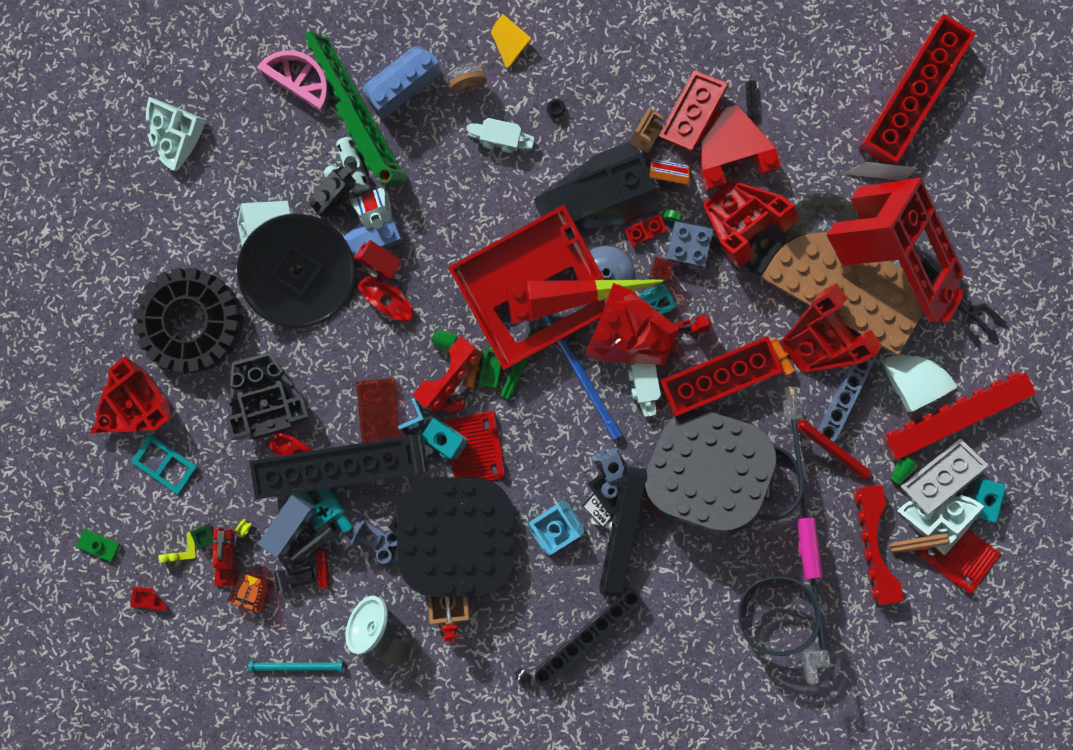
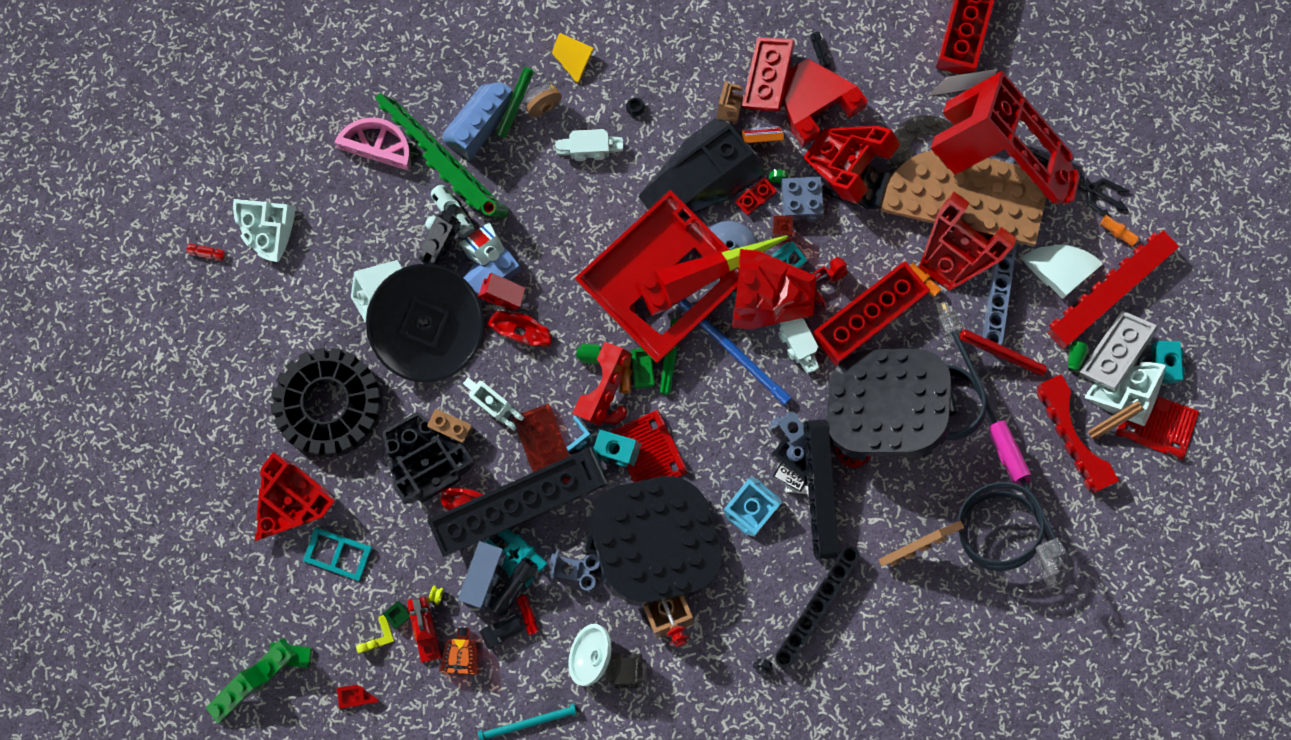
camera: 20 degrees left, 10 degrees down
(55, 561) = (250, 680): none -> green bracket
(111, 141) = (206, 252): none -> red axle
(295, 375) = (450, 425): none -> medium nougat bracket
(341, 363) = (492, 402): none -> light aqua hinge
(440, 73) = (515, 101): none -> green axle
(700, 612) = (921, 544): none -> medium nougat wing
(983, 359) = (1119, 230): none -> orange pin

